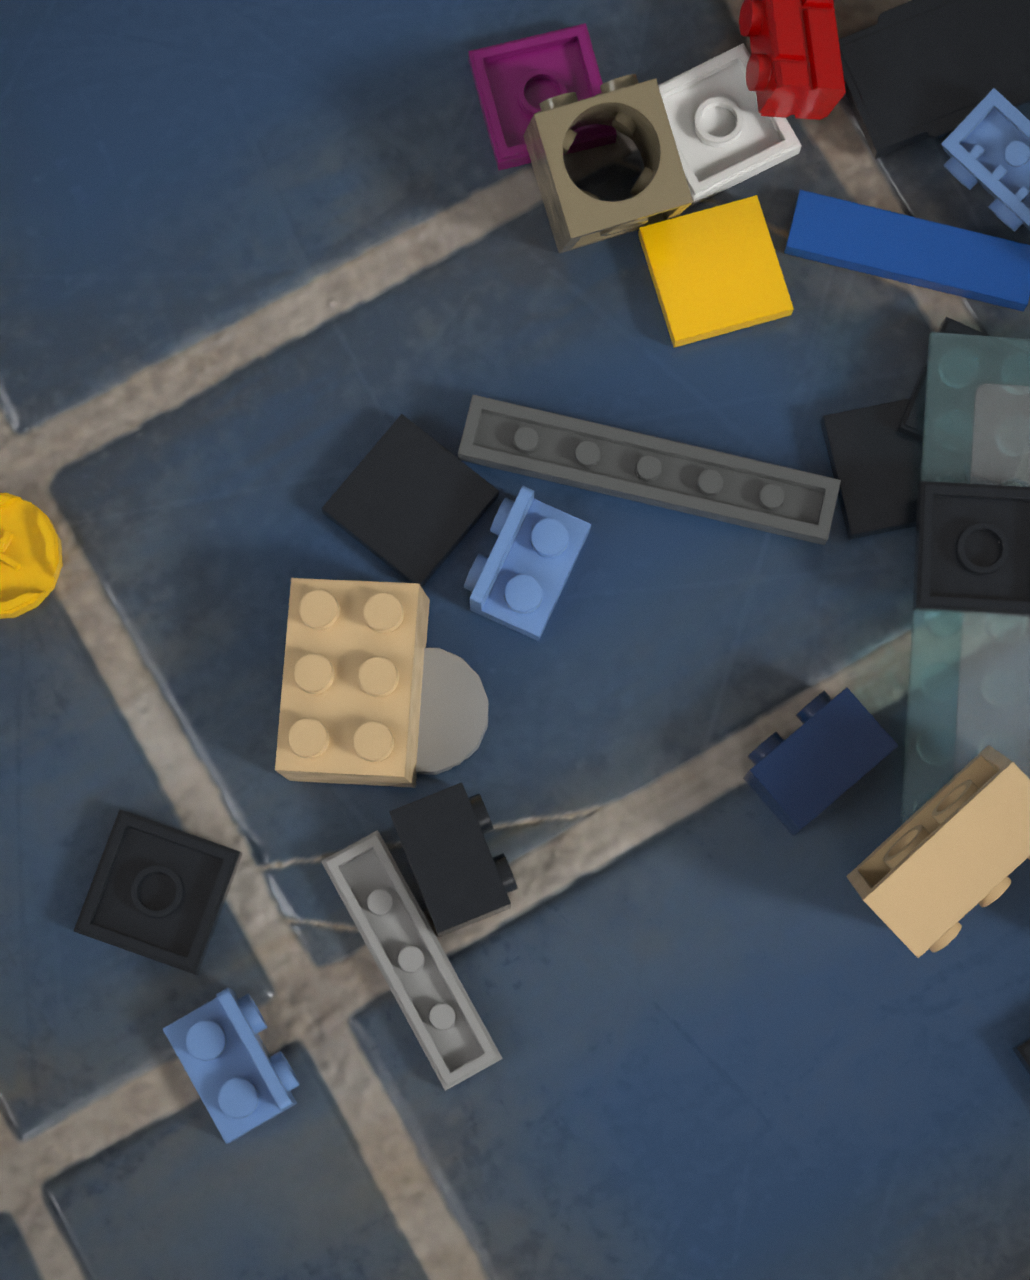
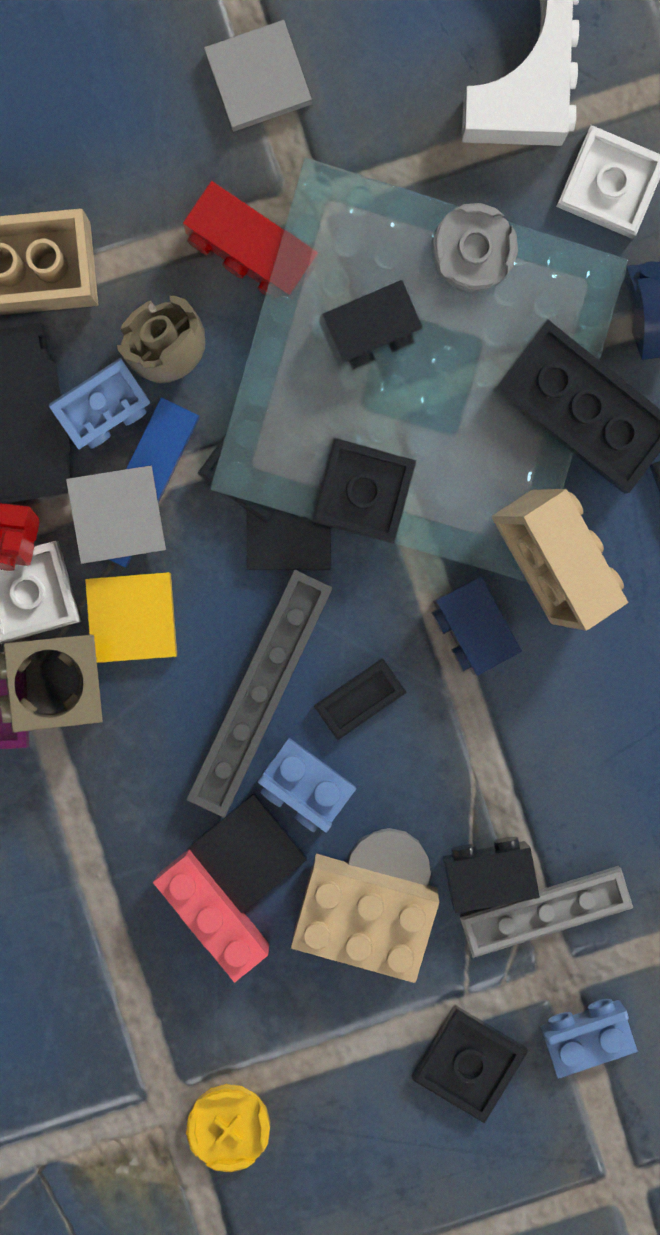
camera: 75 degrees left, 10 degrees up
(312, 463) = (212, 916): none -> coral brick
(670, 617) = (360, 699): none -> black tile
(860, 215) = (116, 514): none -> light grey tile

